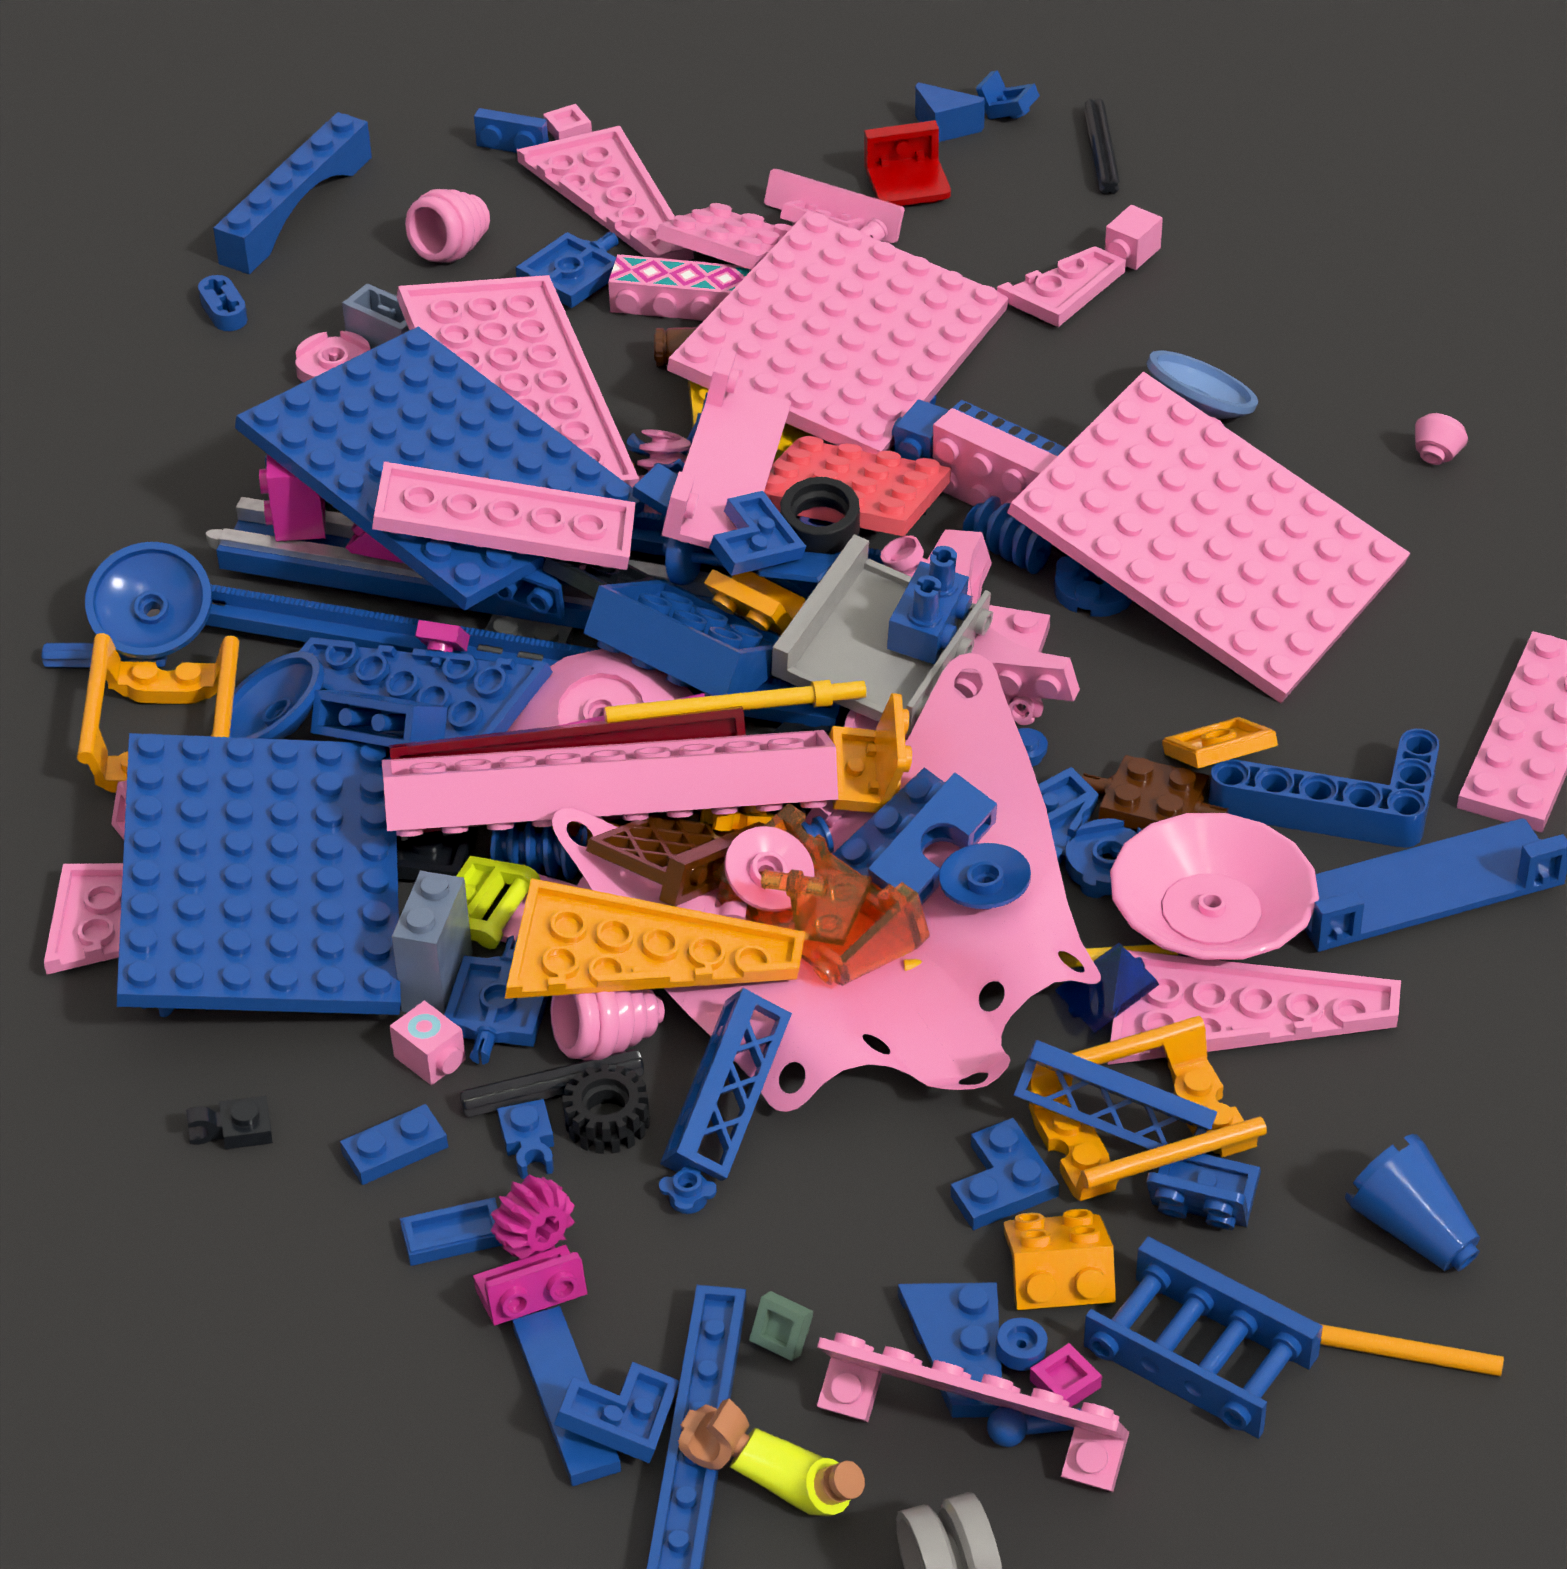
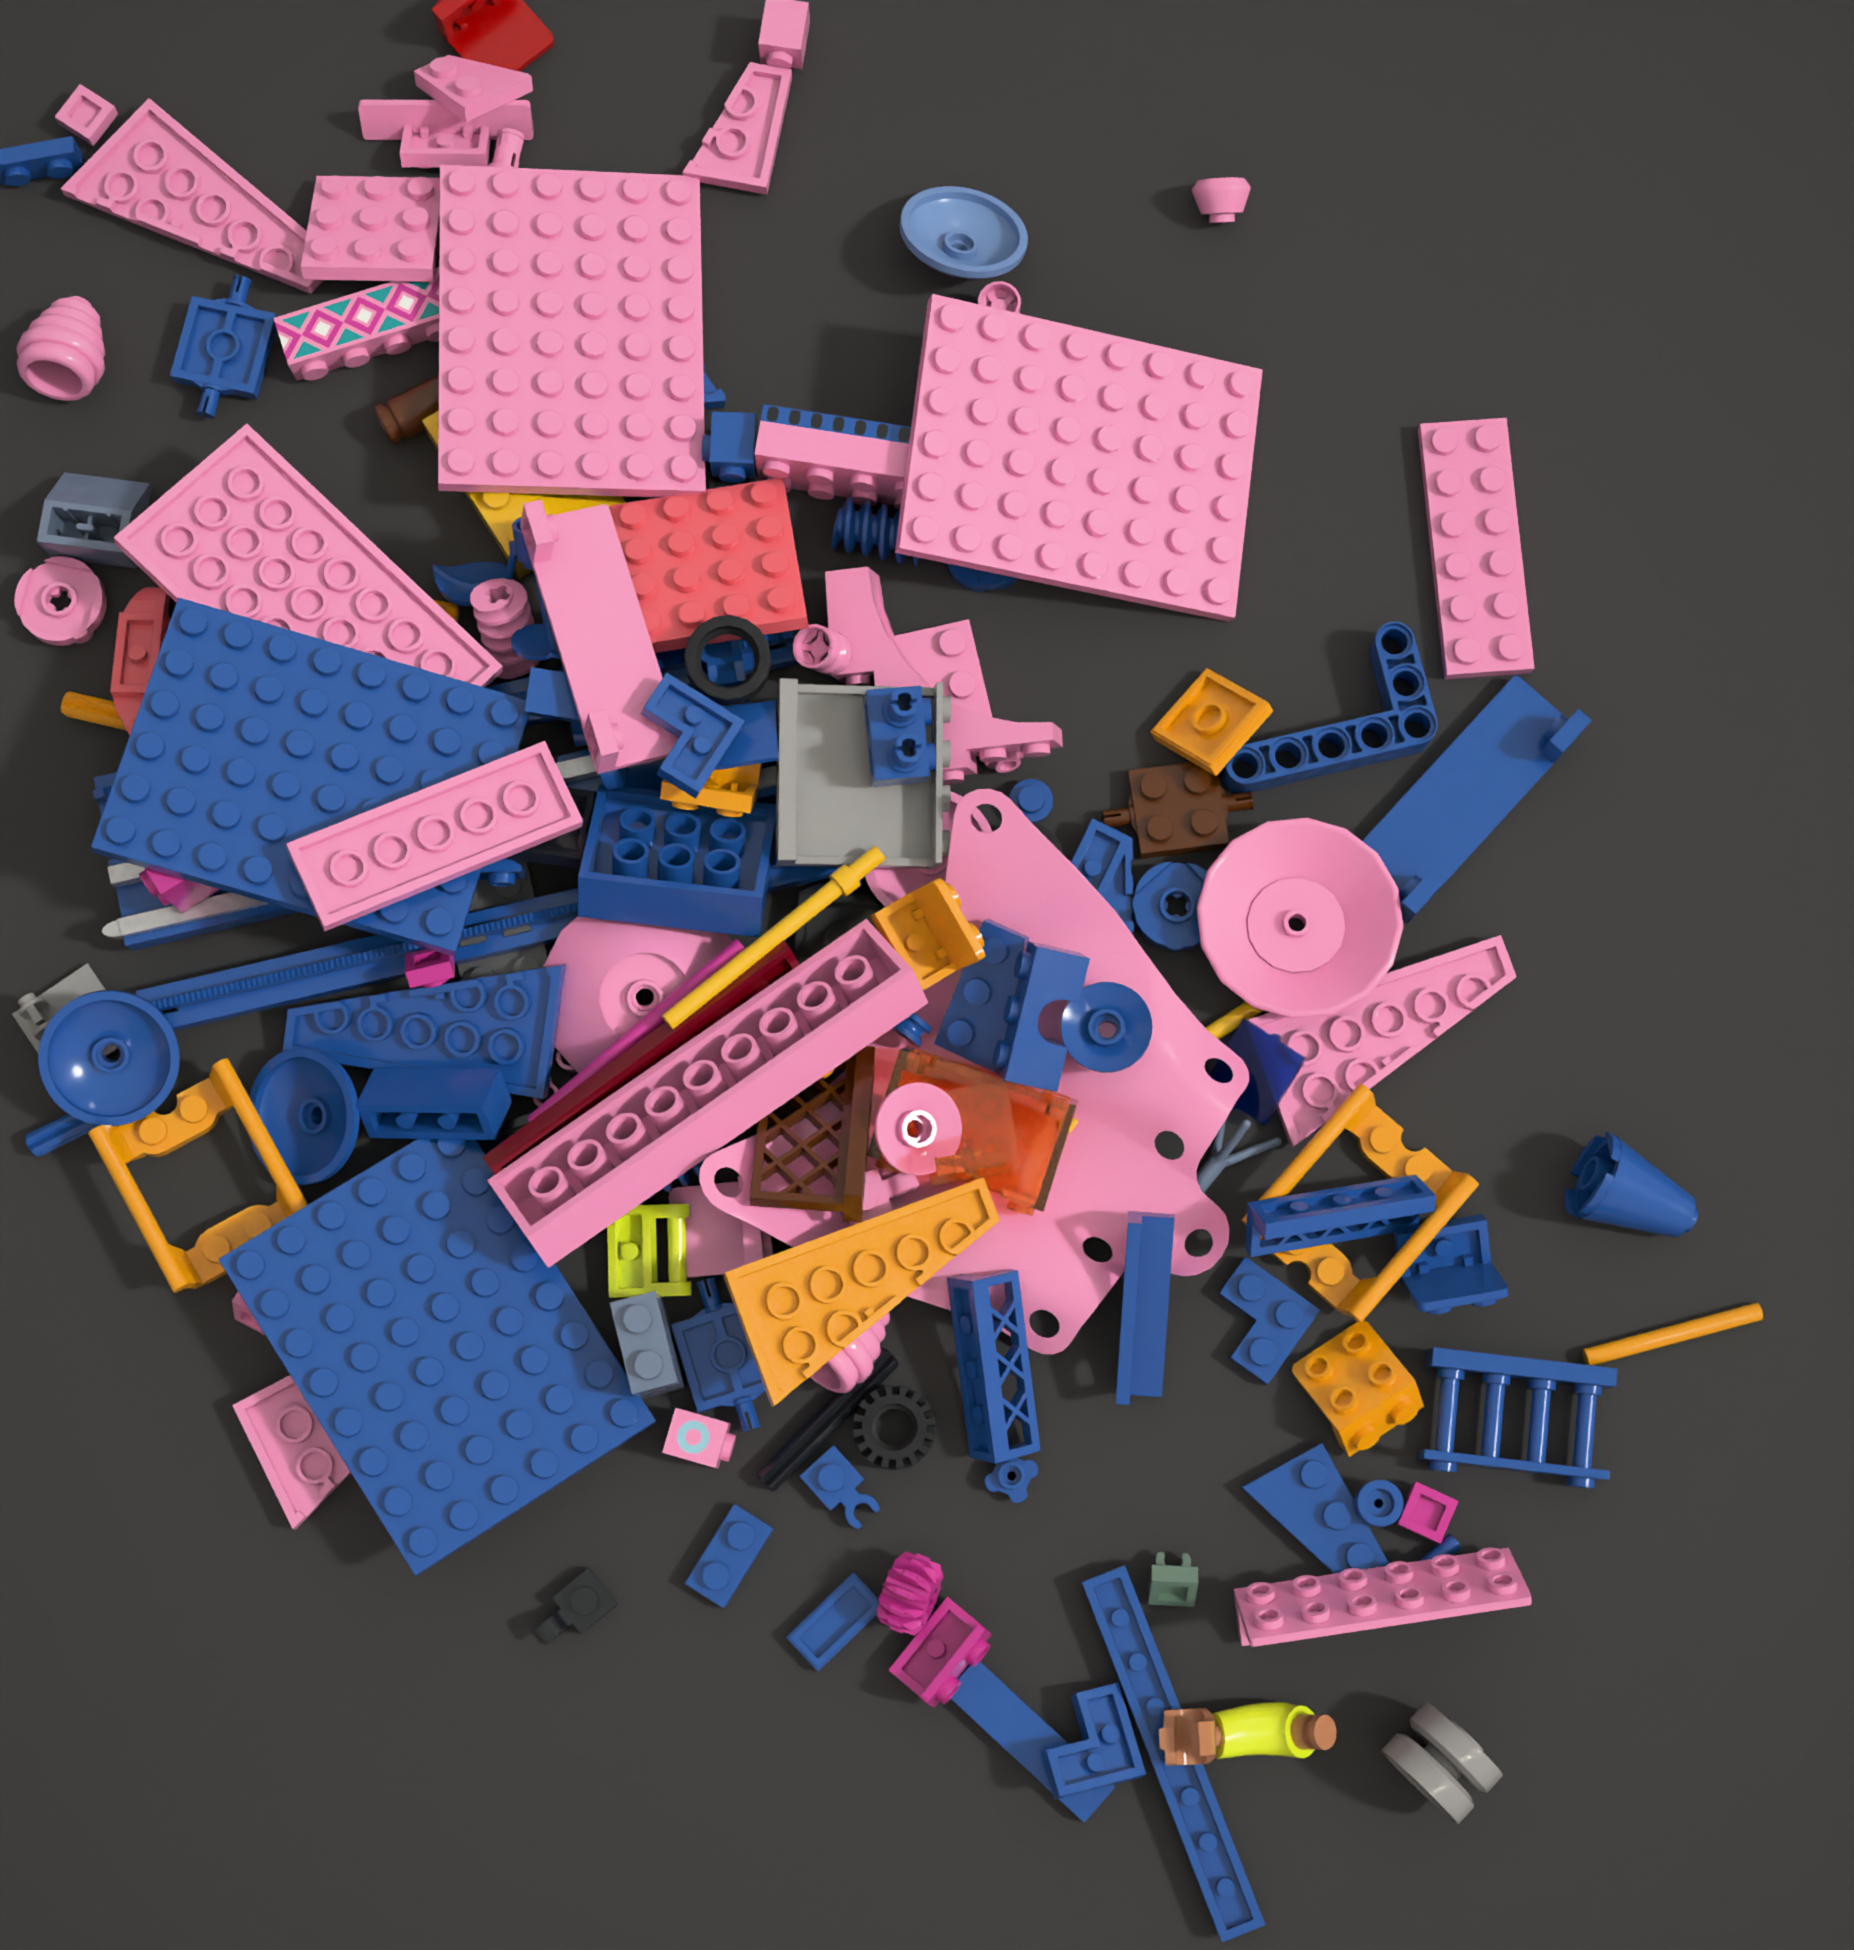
camera: 30 degrees left, 35 degrees up
(858, 183) = (471, 86): none -> bright pink wing
(888, 1095) = (1144, 1305): none -> blue fence
(1022, 1047) = (1220, 1155): none -> sand blue plant

